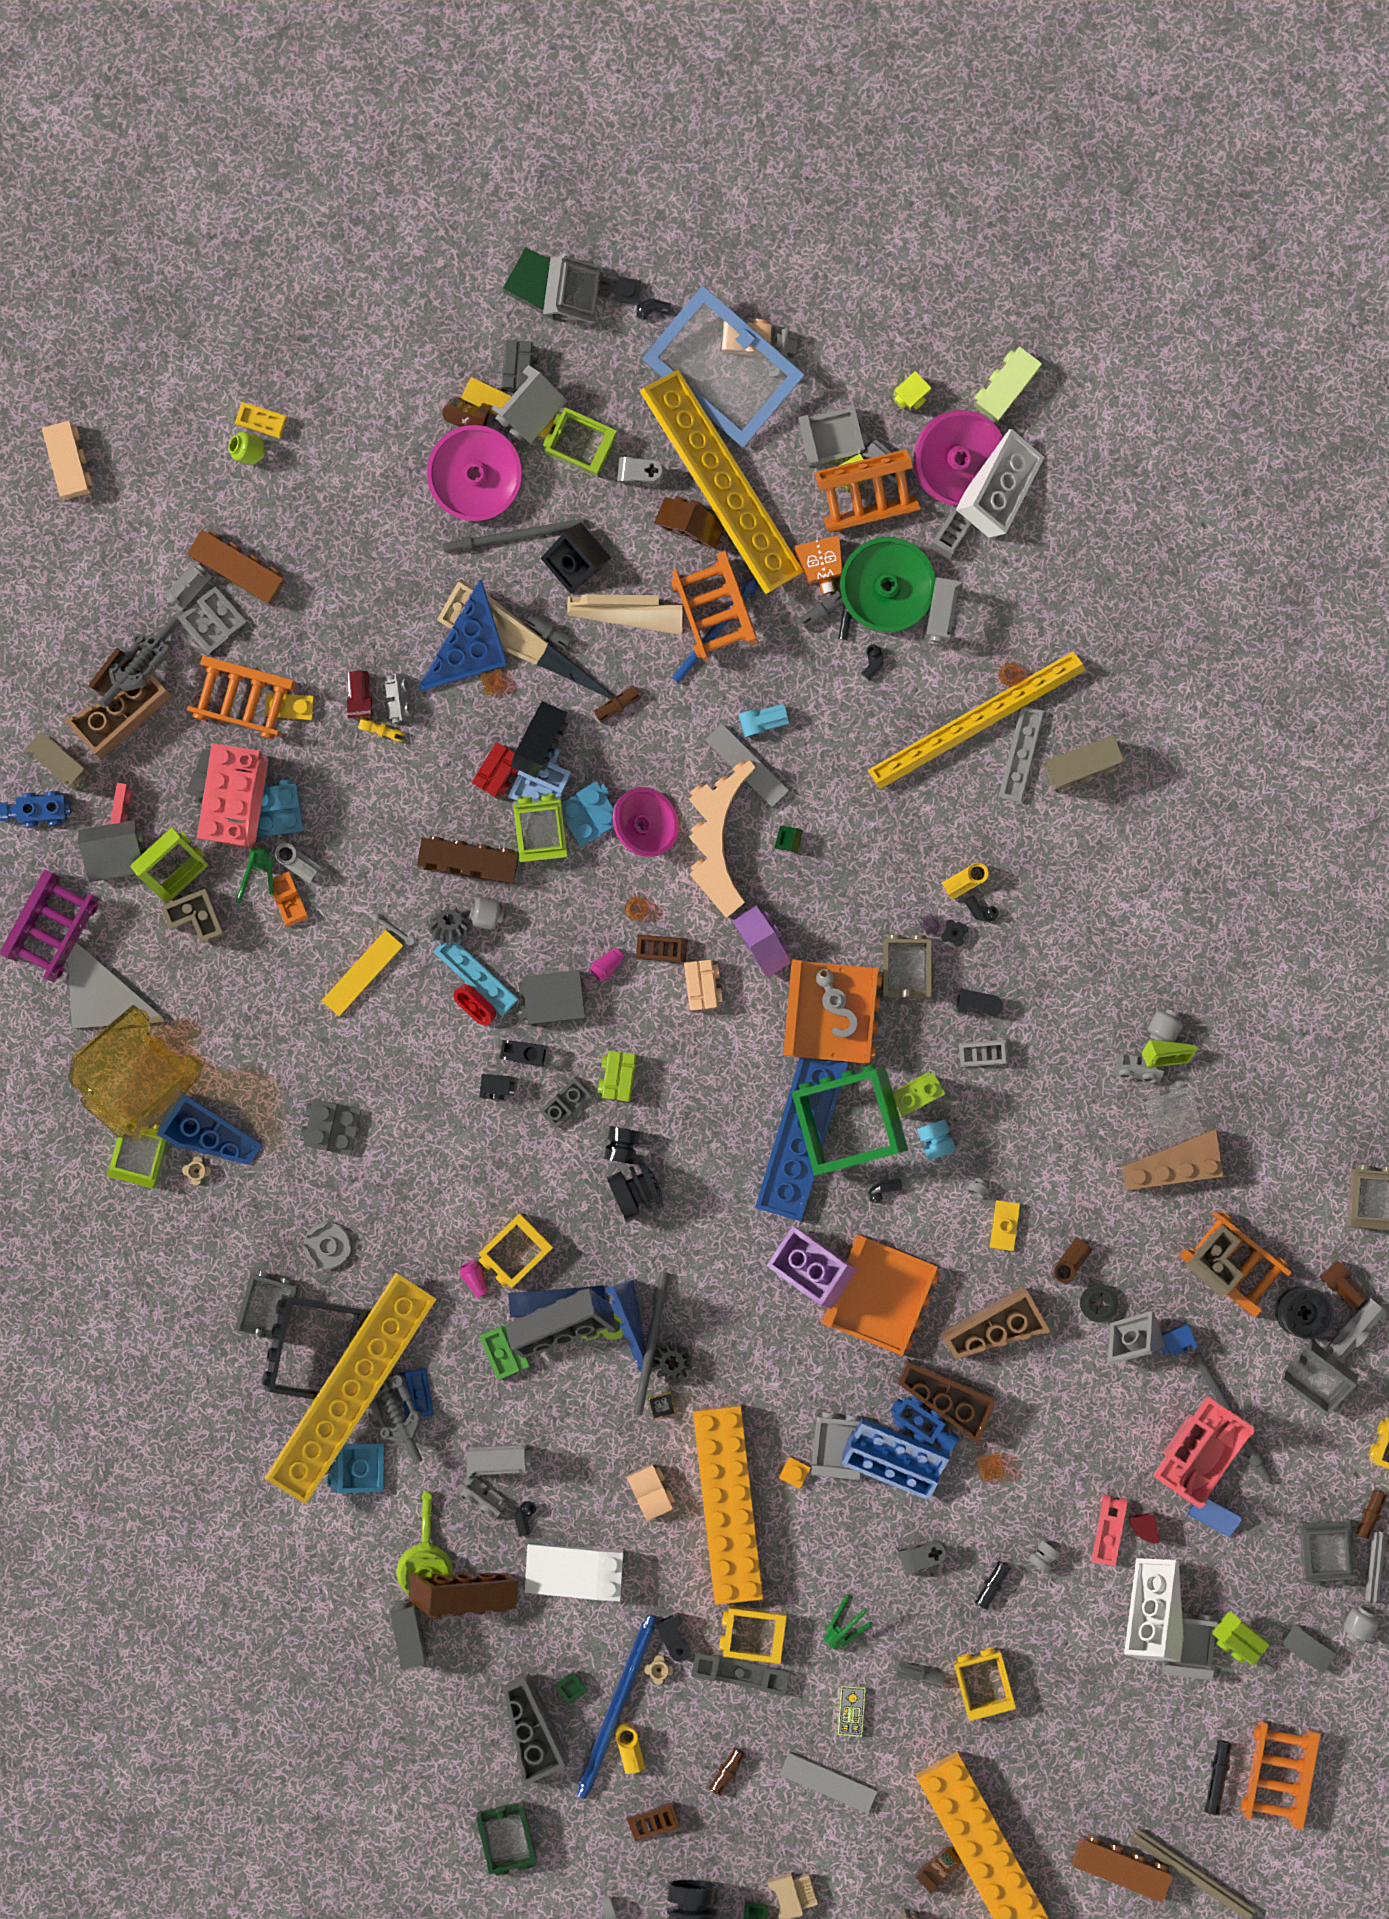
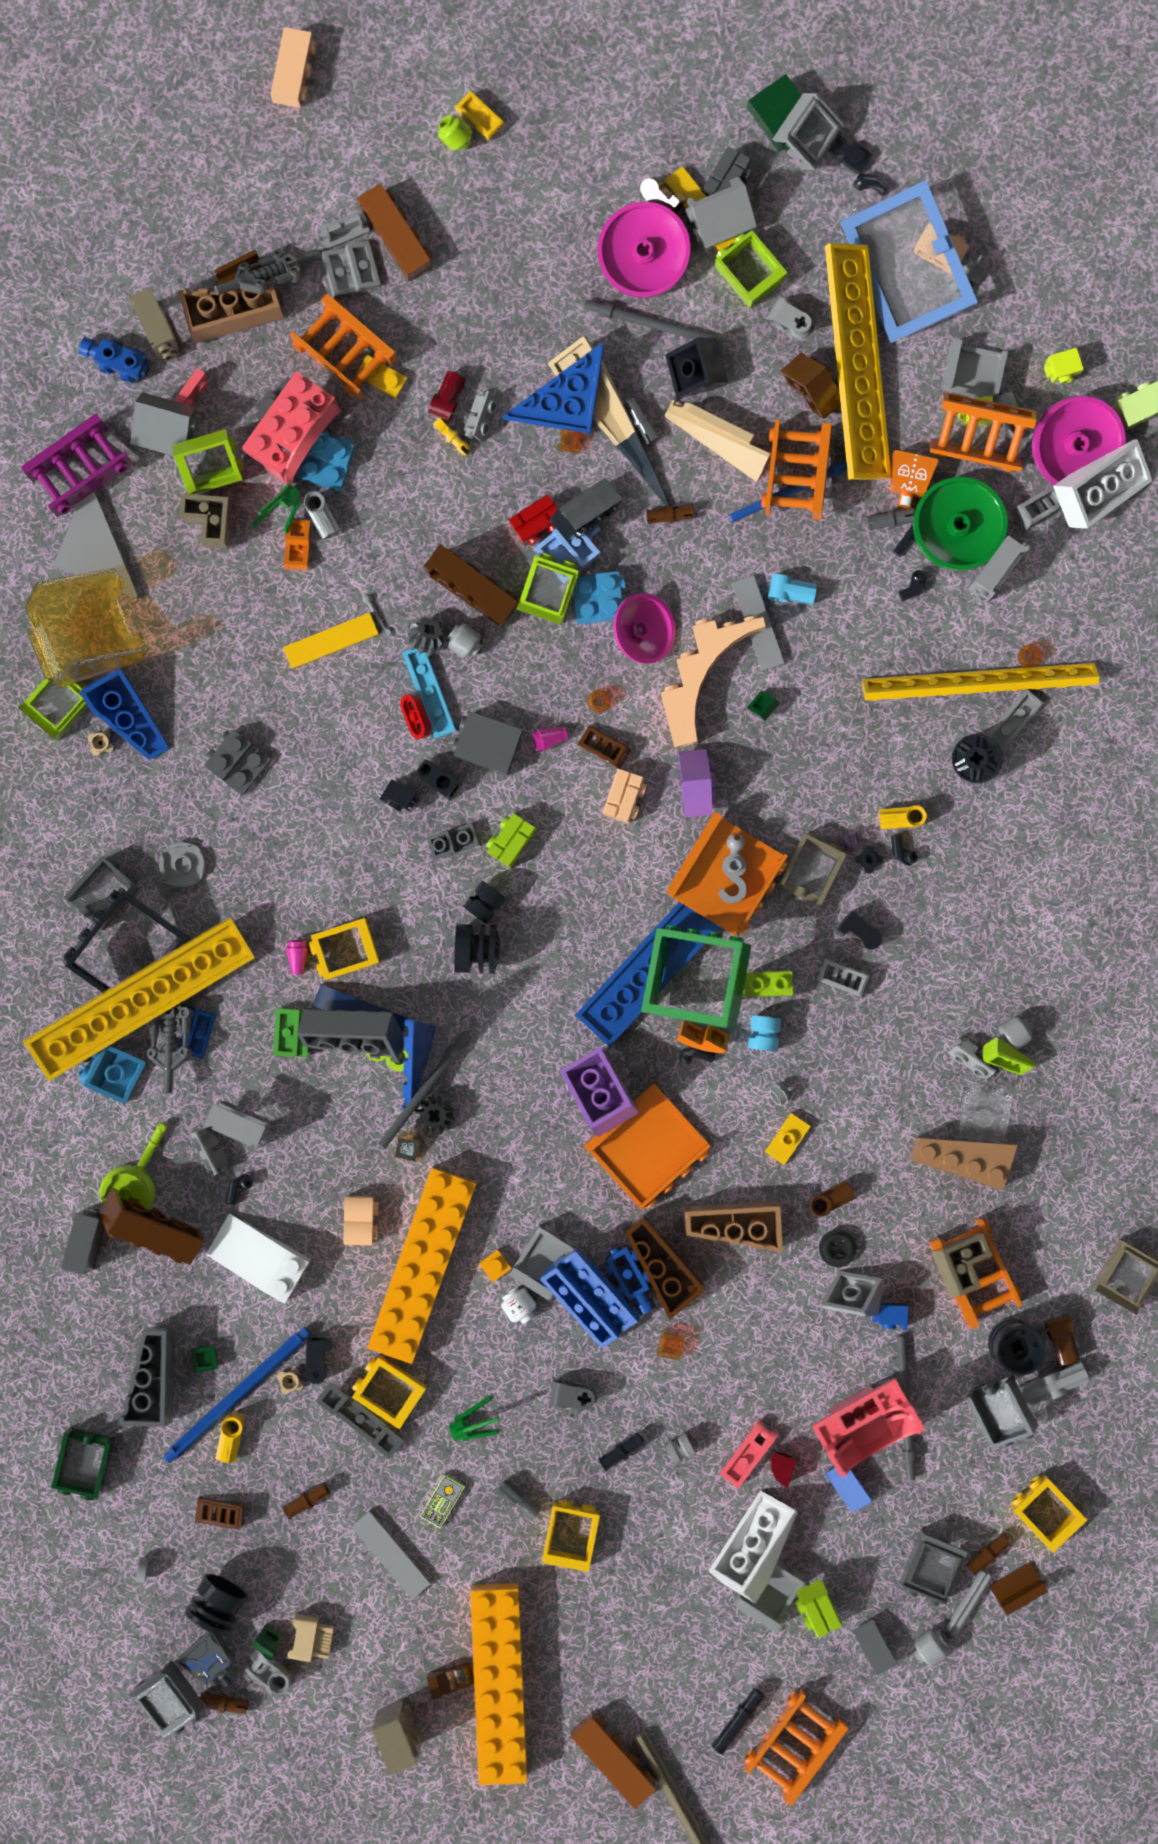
camera: 25 degrees right, 0 degrees up
(833, 1498) = (518, 1305): none -> white head
(888, 1170) = (706, 1039): none -> orange slope
(1008, 779) = (985, 747): none -> black wheel
(1083, 764) = (1057, 765): dark tan brick -> none

